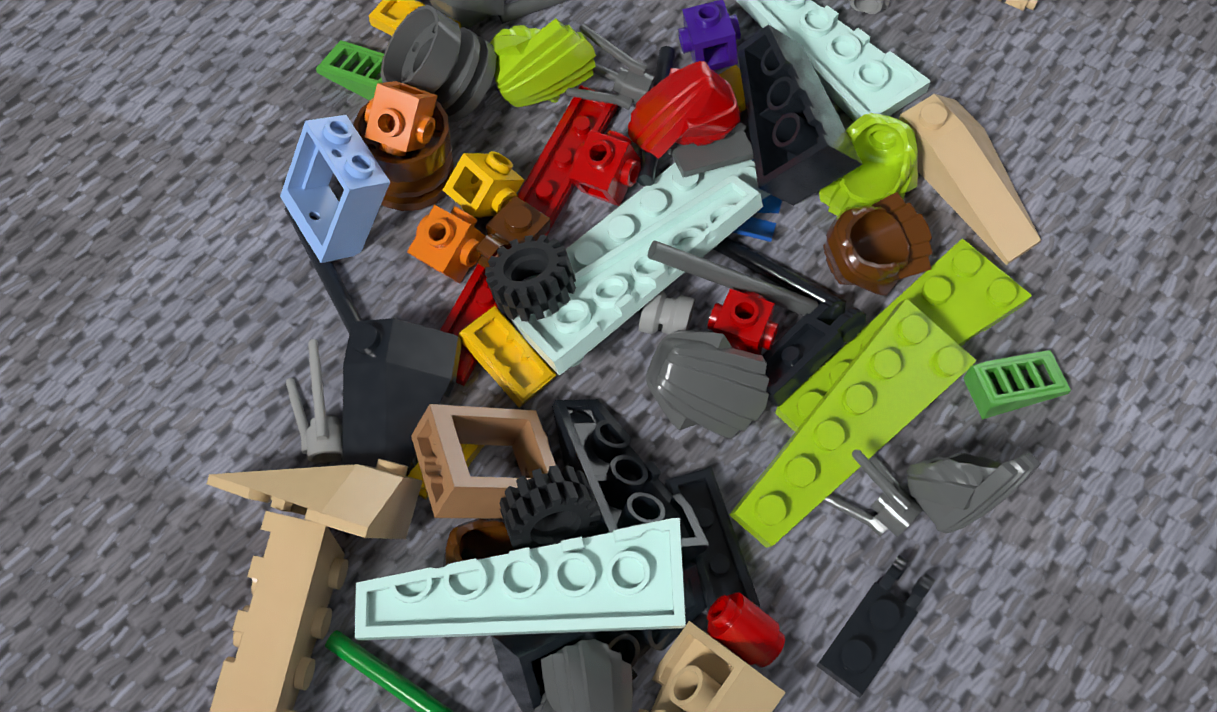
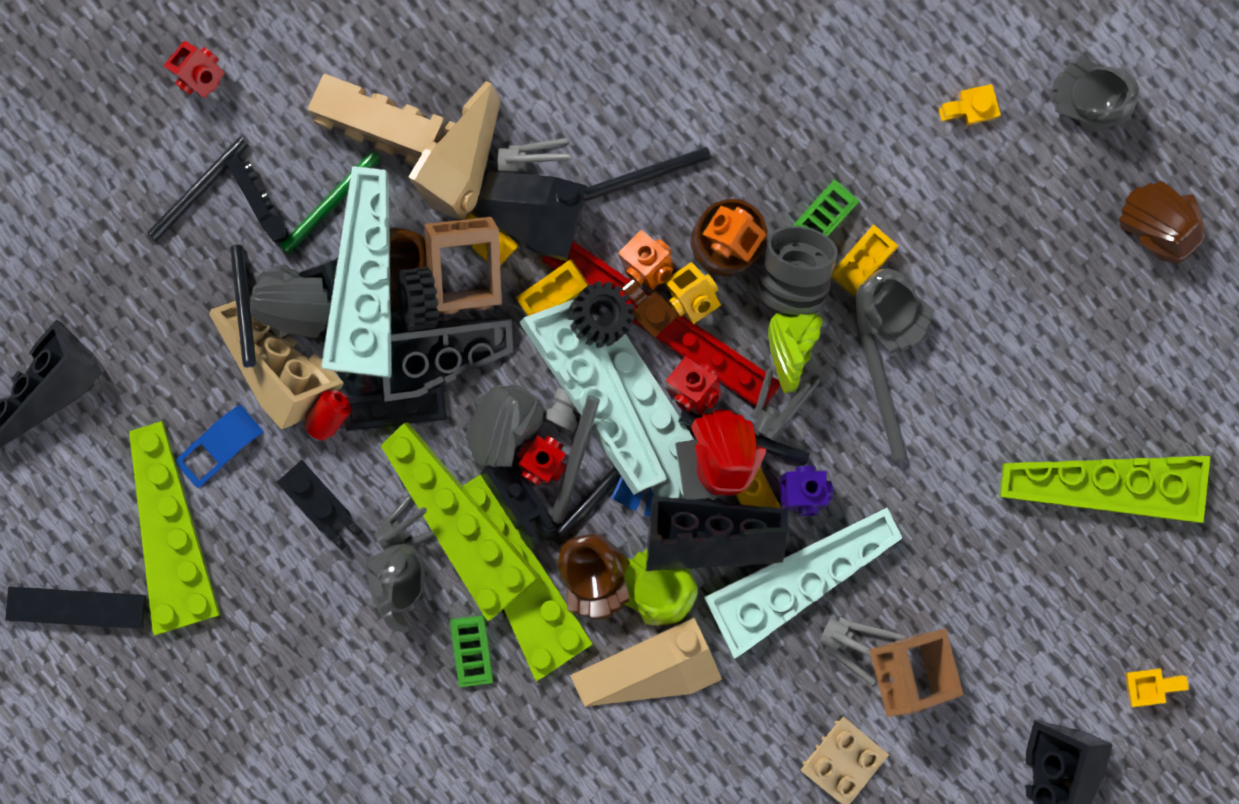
camera: 100 degrees right, 20 degrees up
(343, 226) = (701, 186): light blue window -> none

